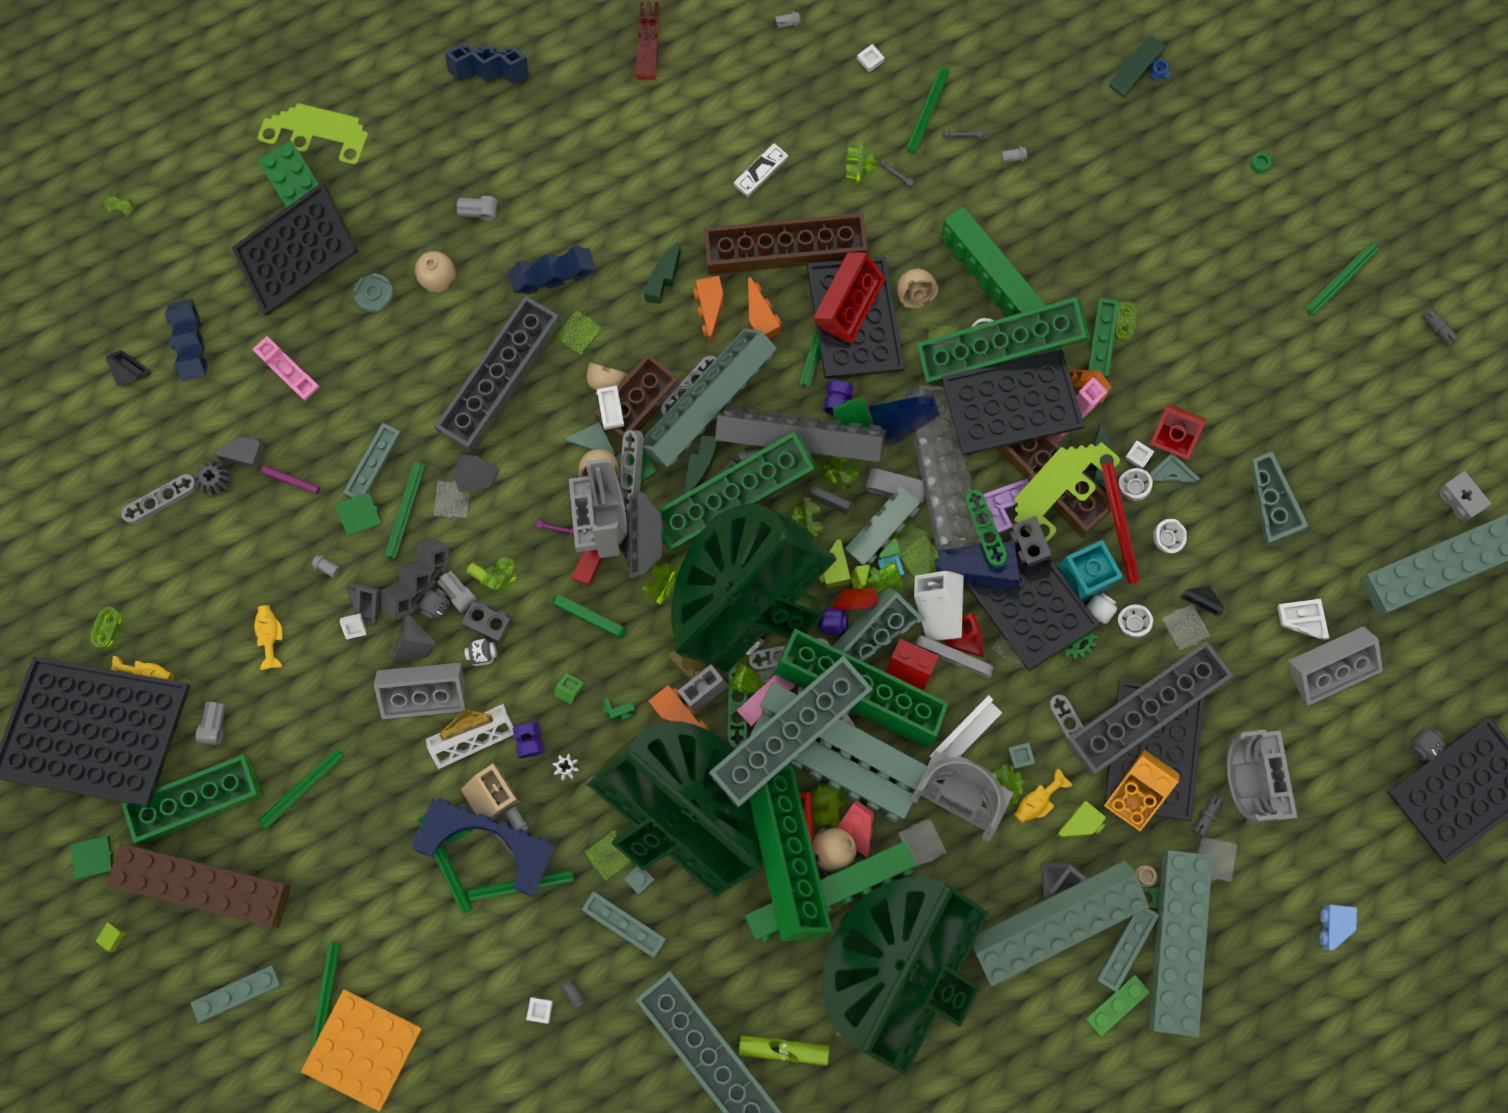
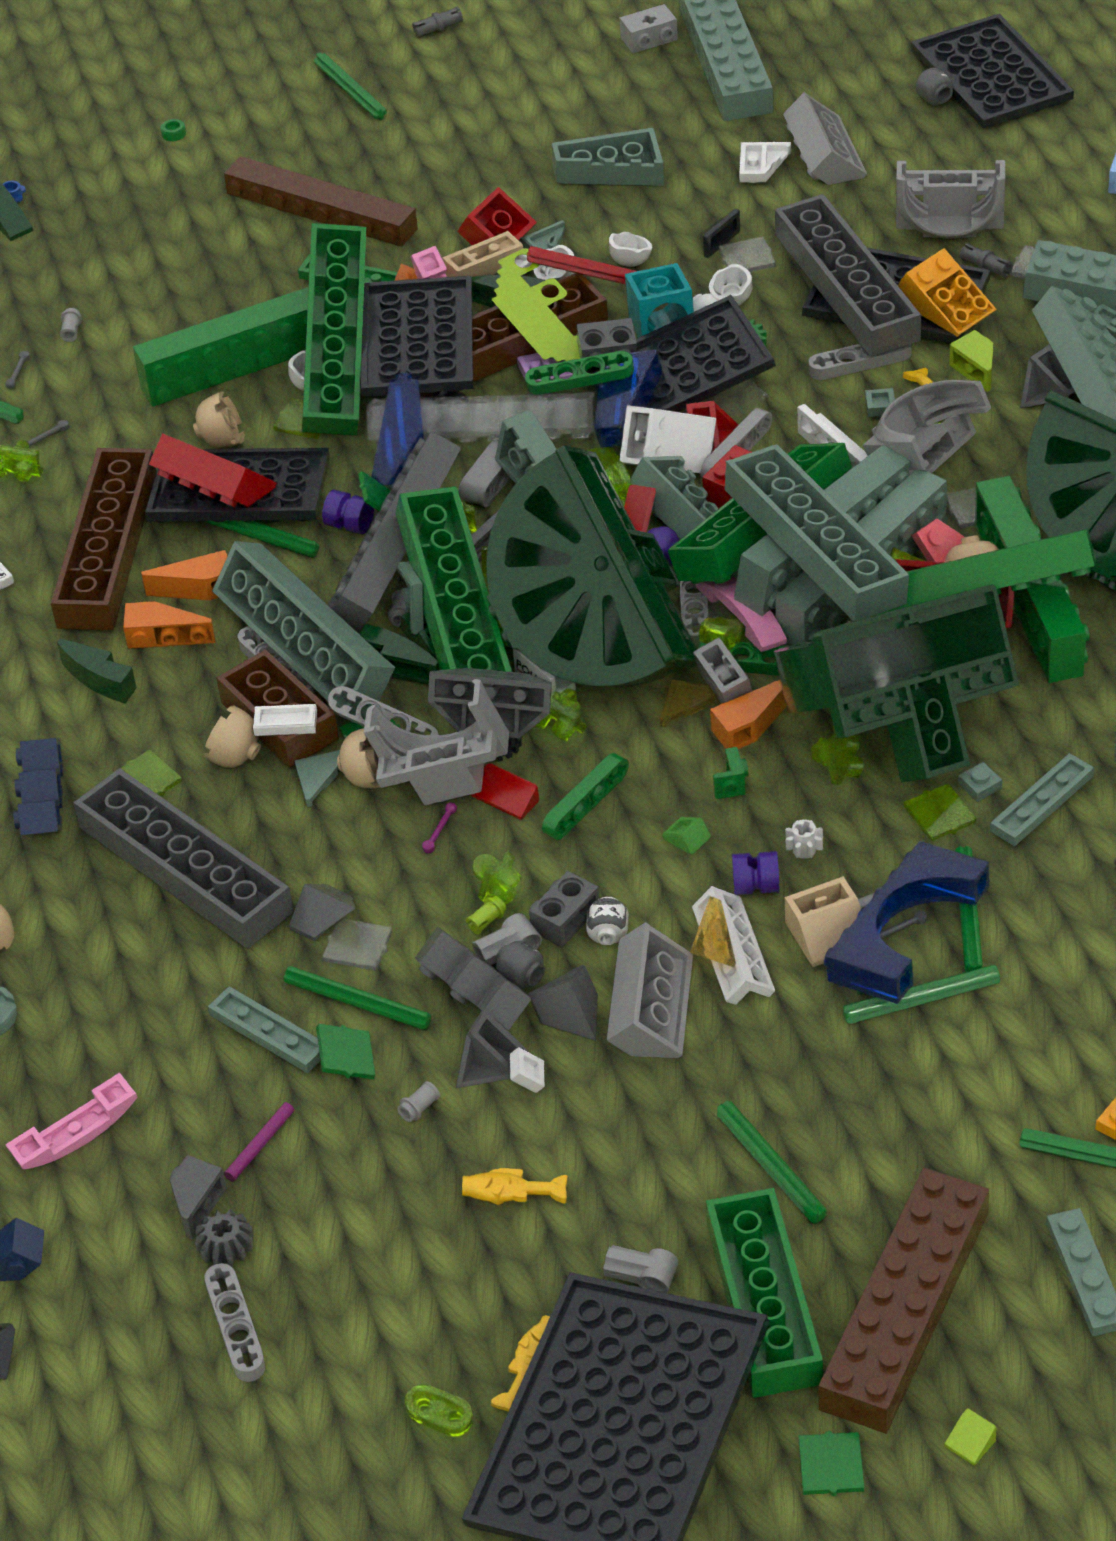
camera: 80 degrees left, 30 degrees down
(737, 459) = (412, 596): none -> sand green tile
(1127, 428) = (481, 257): none -> tan slope
(1186, 294) = (320, 200): none -> reddish brown brick

